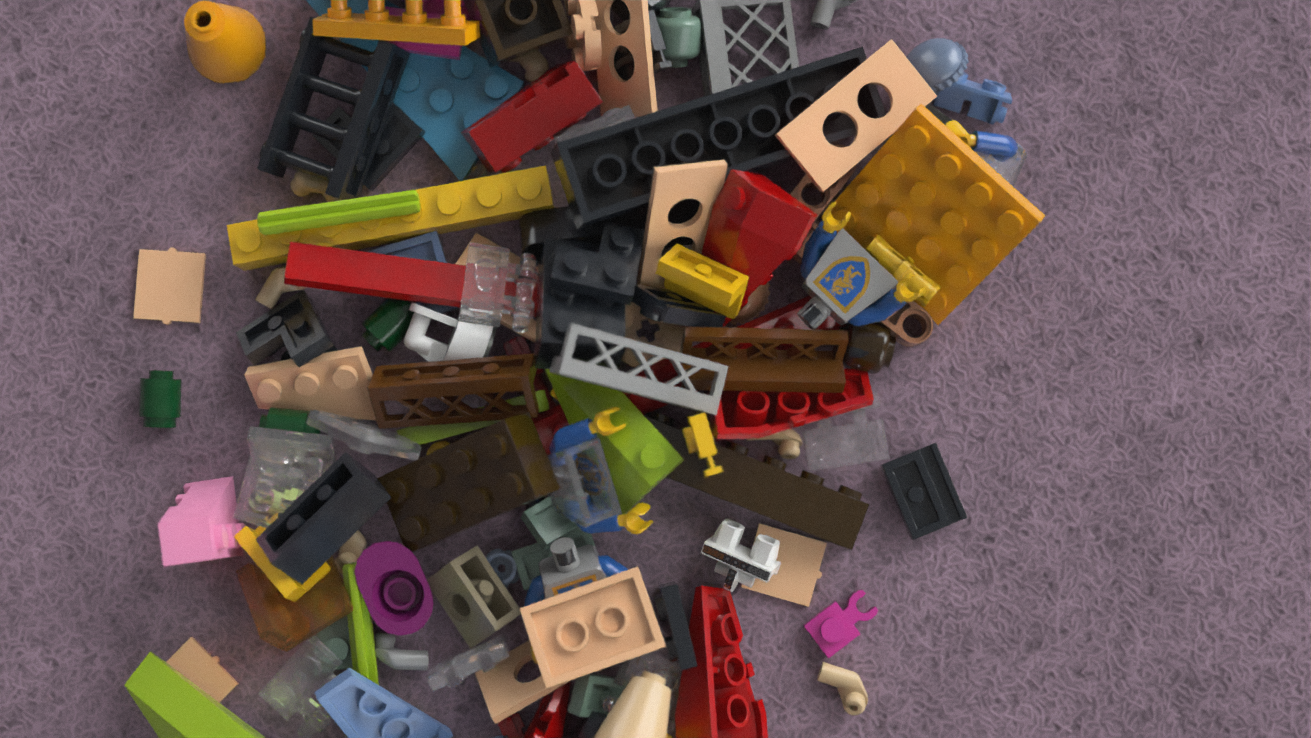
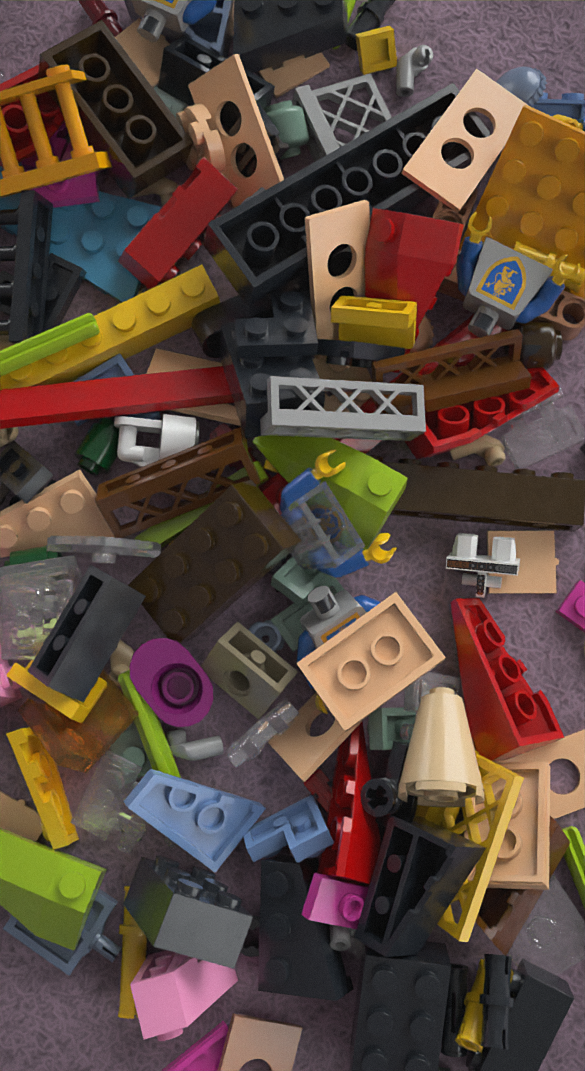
camera: 15 degrees left, 5 degrees down
(242, 655) = (45, 787): none -> yellow wing
(485, 283) = (178, 383): clear plate -> none
(671, 609) = (443, 632): black plate -> none
(700, 440) = (422, 461): yellow plate -> none

